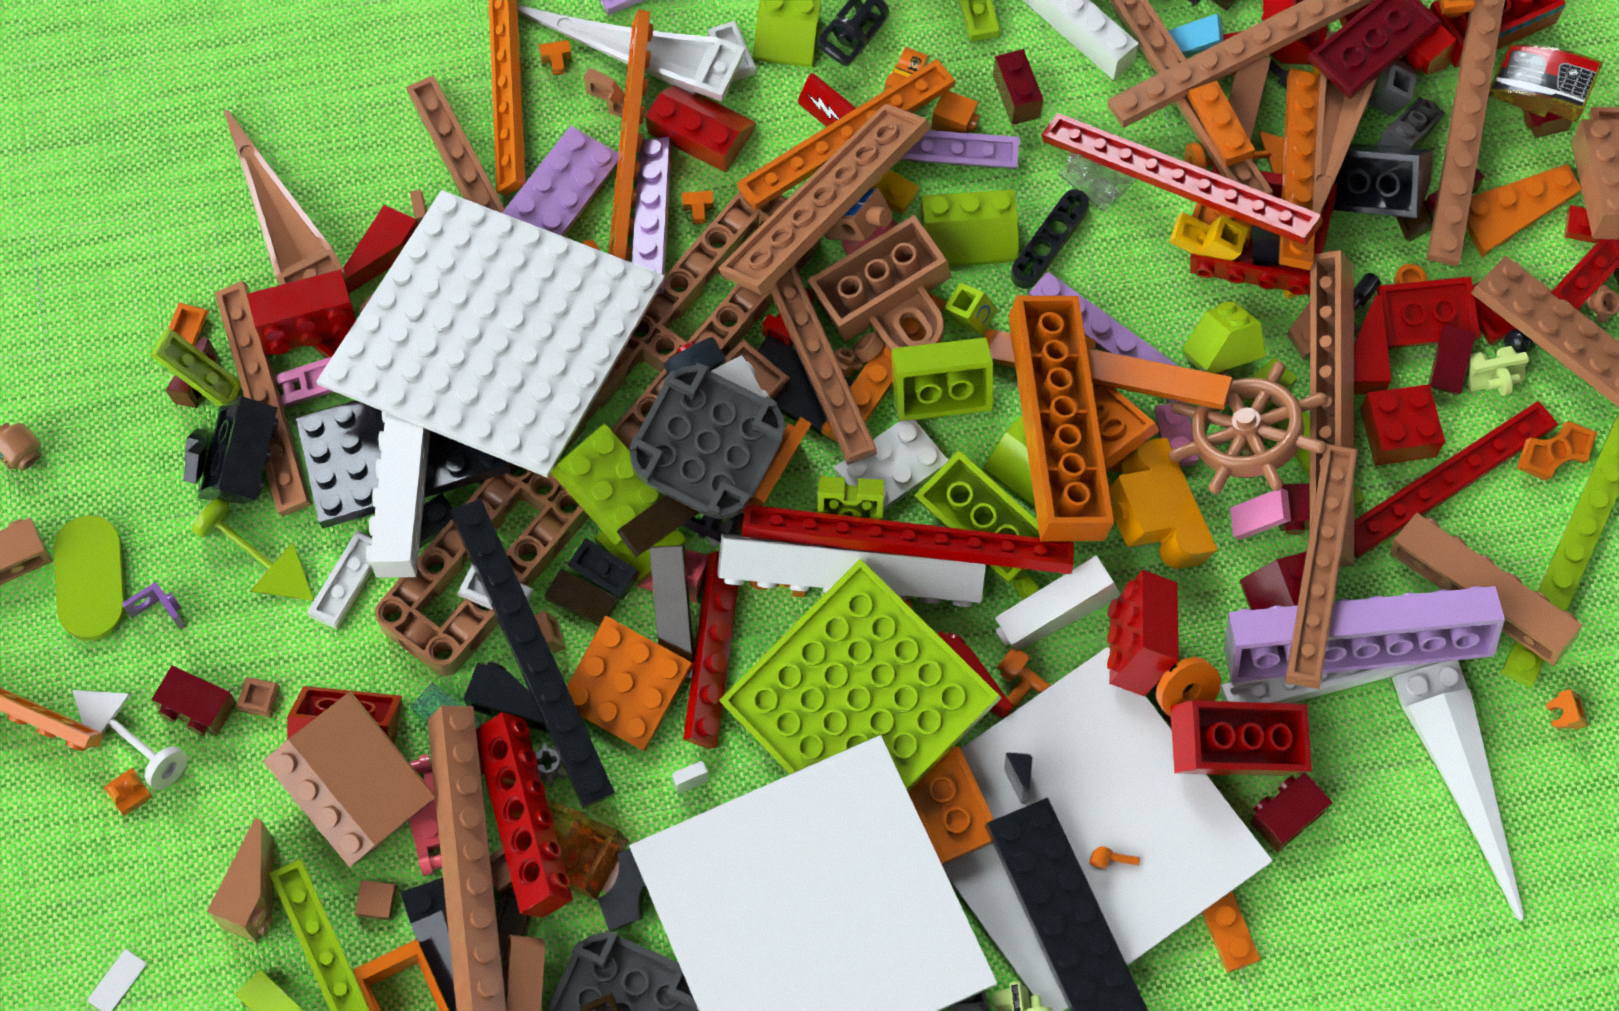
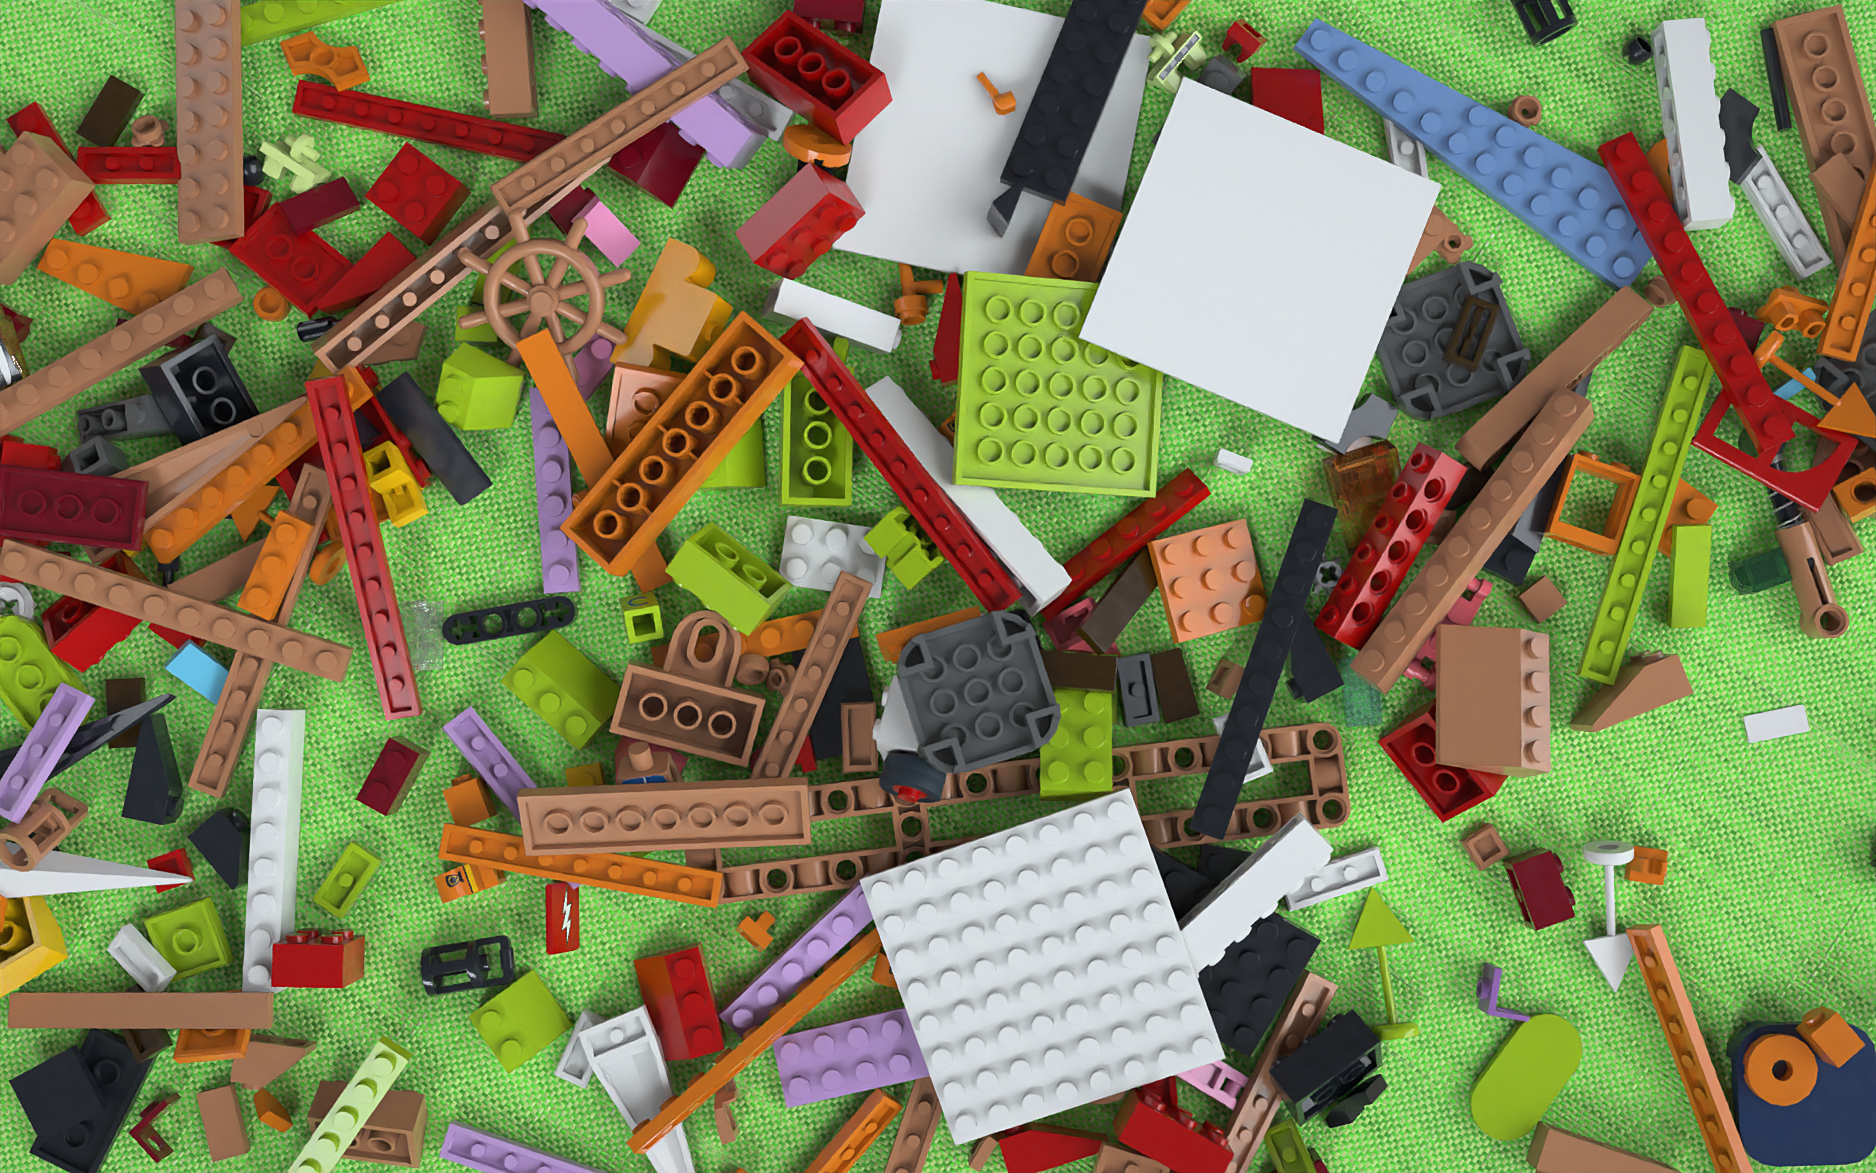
camera: 130 degrees left, 20 degrees up
(1217, 287) = (433, 439): none -> black slope

